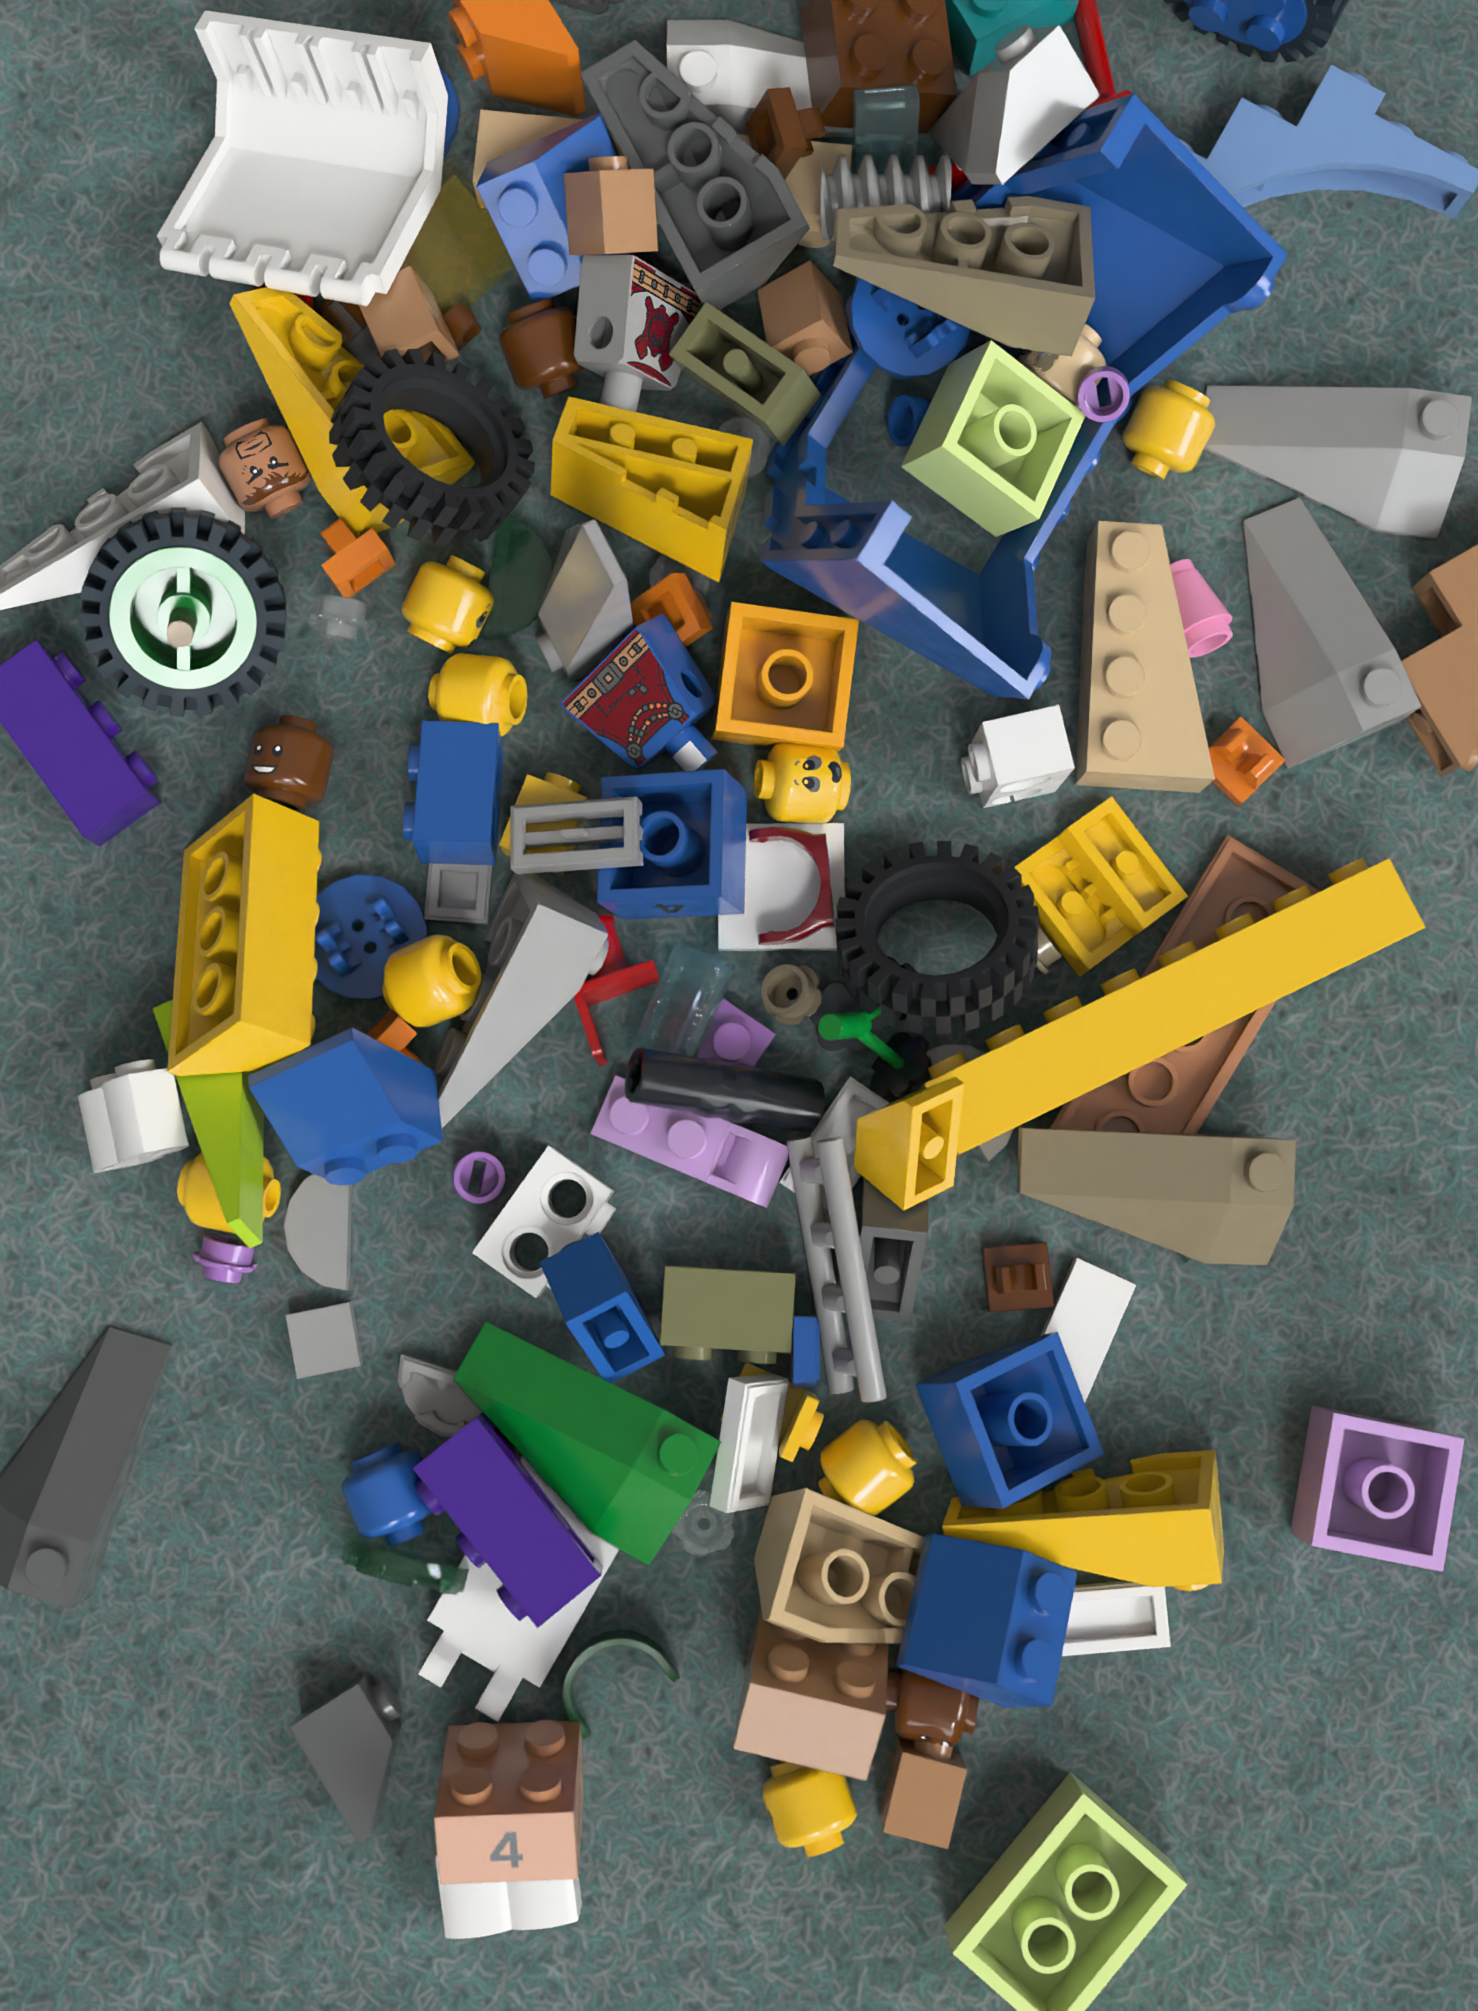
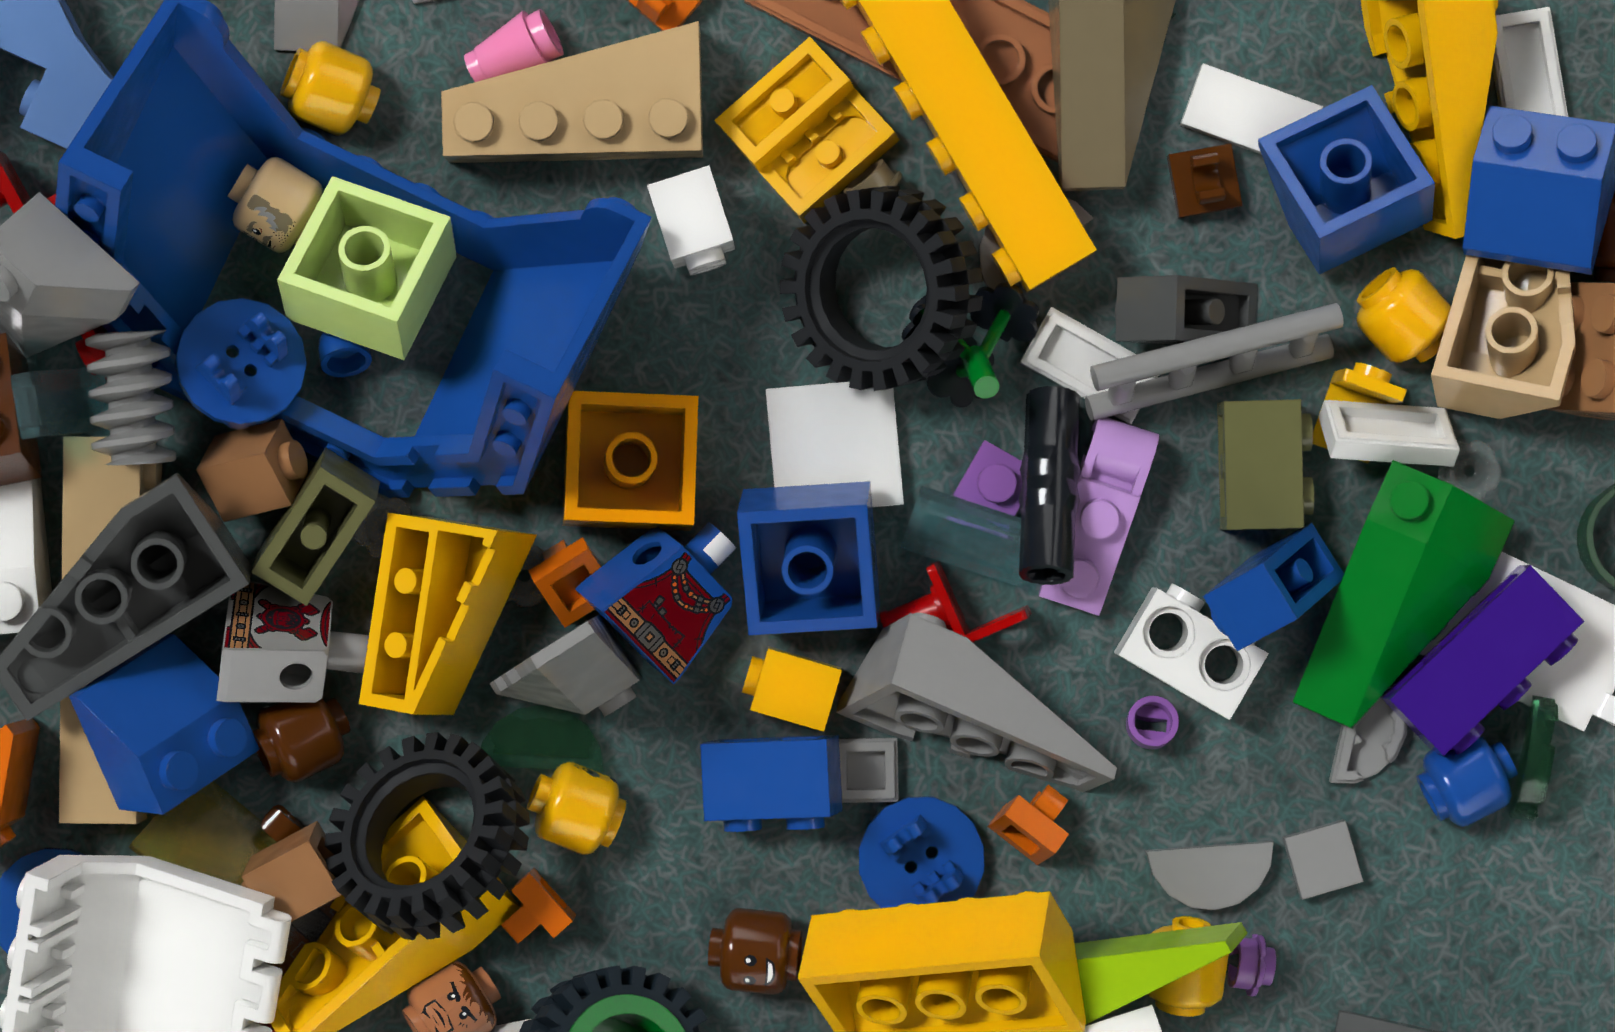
camera: 90 degrees left, 5 degrees up
(339, 617) = (598, 917): clear plate -> none
(349, 1106) = (1102, 850): blue slope -> none
(431, 980) = (965, 785): yellow head -> none
(479, 691) = (666, 768): yellow head -> none
(610, 208) = (173, 676): medium nougat brick -> none
(630, 834) = (807, 600): light grey tile -> none
(777, 987) = (939, 442): dark tan plate -> none
(782, 131) = (68, 510): reddish brown tile -> none
(802, 783) = (732, 433): yellow head -> none
(805, 1352) = (1297, 385): blue tile -> none
(823, 913) = (863, 401): dark red cap -> none
(912, 1143) = (1089, 297): yellow slope -> none
(1001, 271) = (206, 289): dark tan wedge -> none
(1117, 388) = (314, 173): medium lavender hinge -> none

